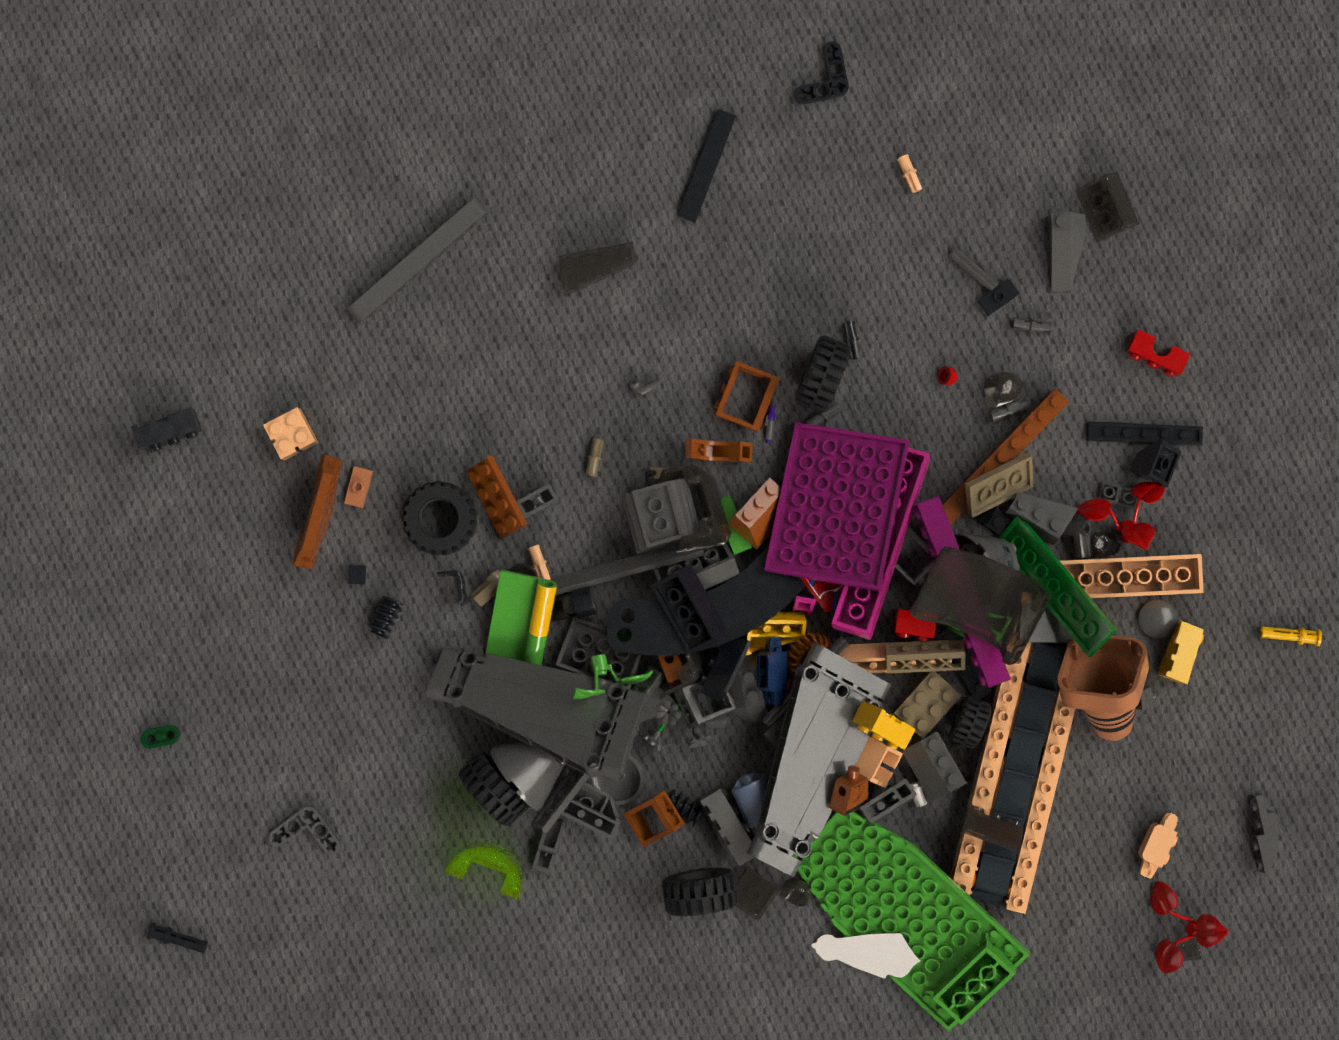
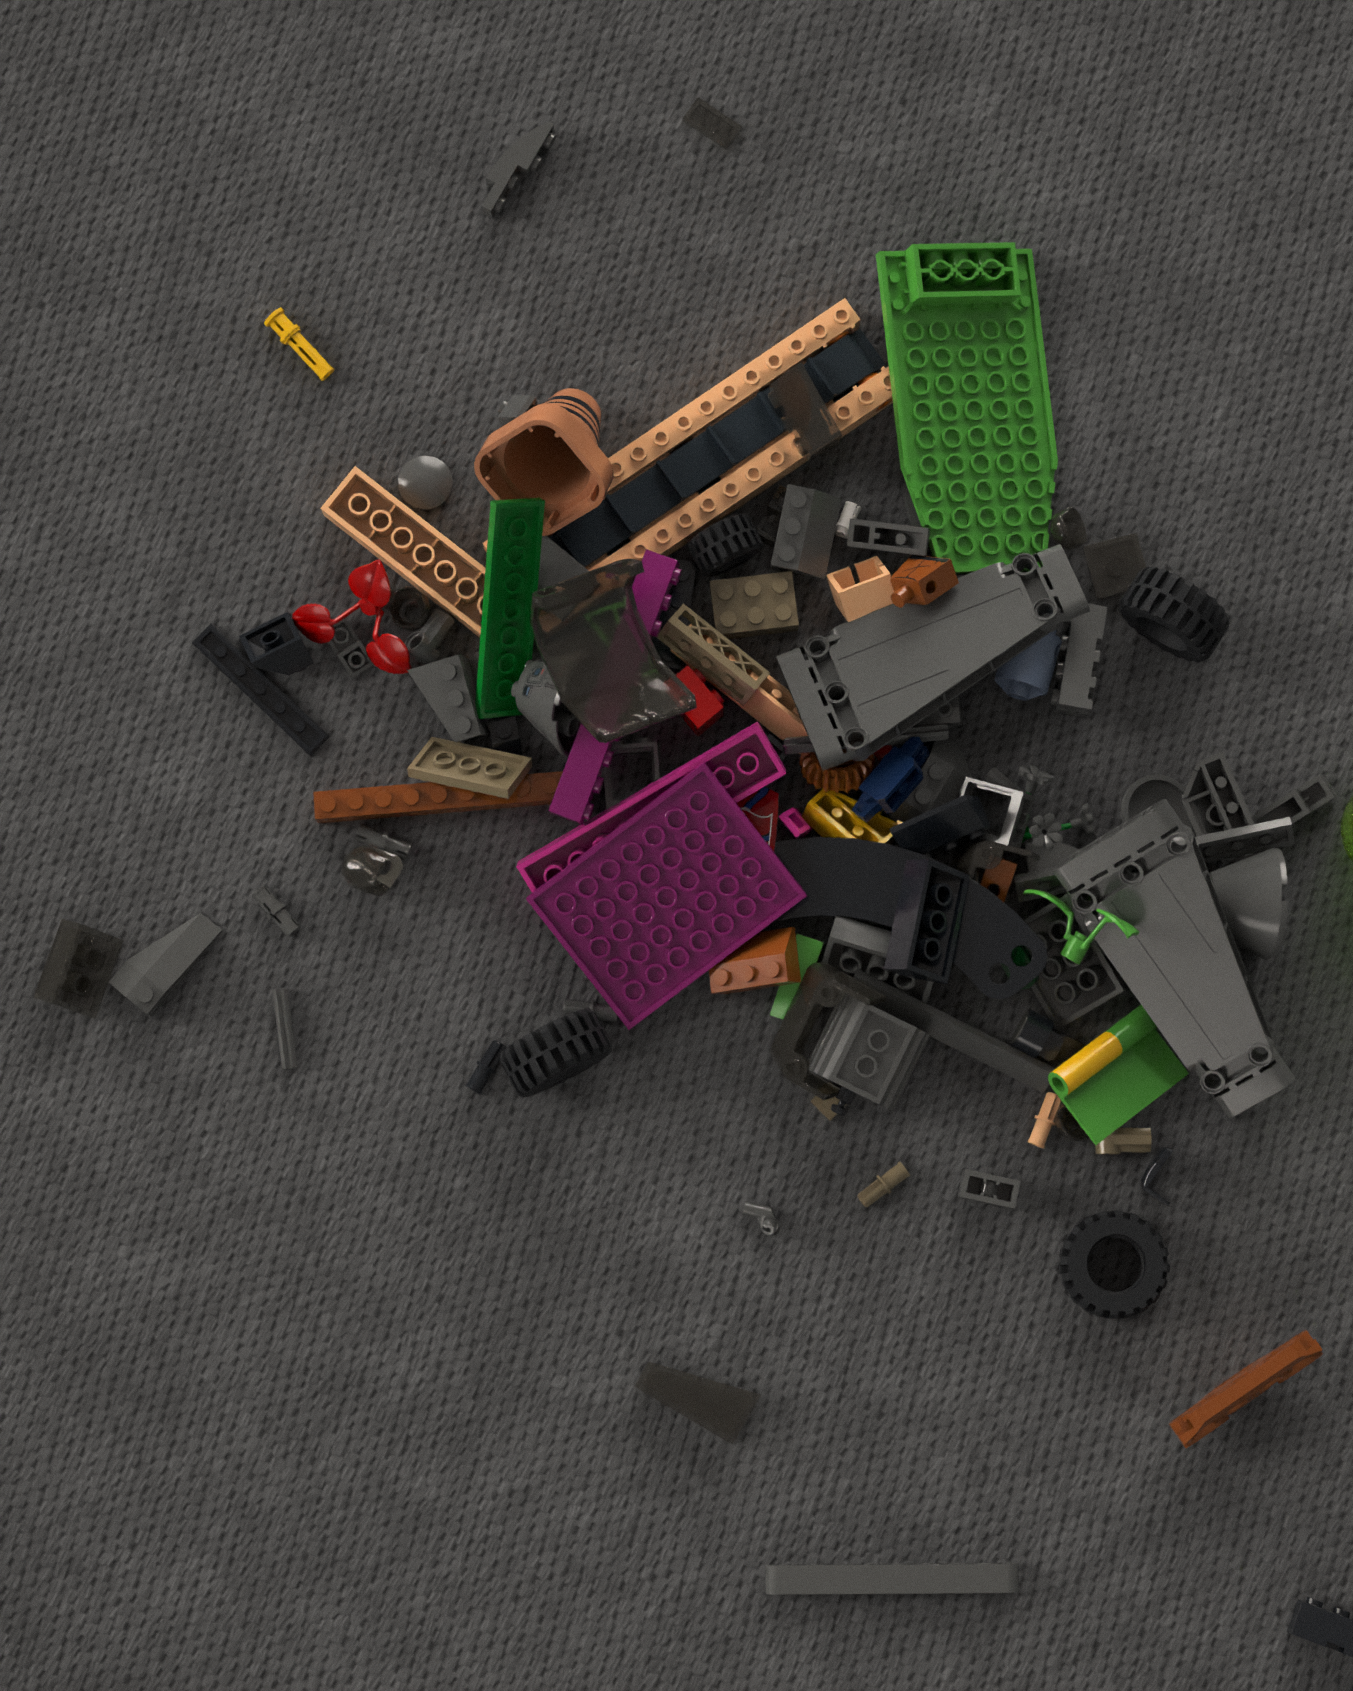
camera: 130 degrees left, 5 degrees down
(289, 432) = (1201, 1506): light nougat piece -> none
(357, 574) = (1258, 1283): black slope -> none
(358, 487) = (1174, 1380): nougat plate -> none
(385, 616) = (1266, 1207): black piece -> none
(492, 790) = (1311, 915): black tyre -> none
(496, 497) = (1030, 1233): dark orange plate -> none
(660, 803) = (1136, 745): dark orange window -> none
(684, 809) = (1115, 722): black piece -> none
(707, 165) = (474, 1403): black tile -> none
(718, 451) = (741, 1071): dark orange arch -> none
(726, 390) = (672, 1132): dark orange window -> none
(769, 423) = (657, 1055): dark grey piece -> none
(834, 79) = (248, 1376): black beam -> none
(871, 953) = (1043, 396): white sticker -> none
(883, 726) = (825, 619): yellow wedge -> none
(909, 173) = (259, 1195): light nougat axle -> none
(947, 376) = (418, 936): red tile -> none
(998, 297) = (284, 974): black plate -> none
(1141, 348) = (180, 784): red arch -> none
(1157, 845) = (638, 250): light nougat hinge -> none
(1181, 653) = (434, 424): yellow wedge -> none
(1206, 929) = (668, 122): red plant -> none

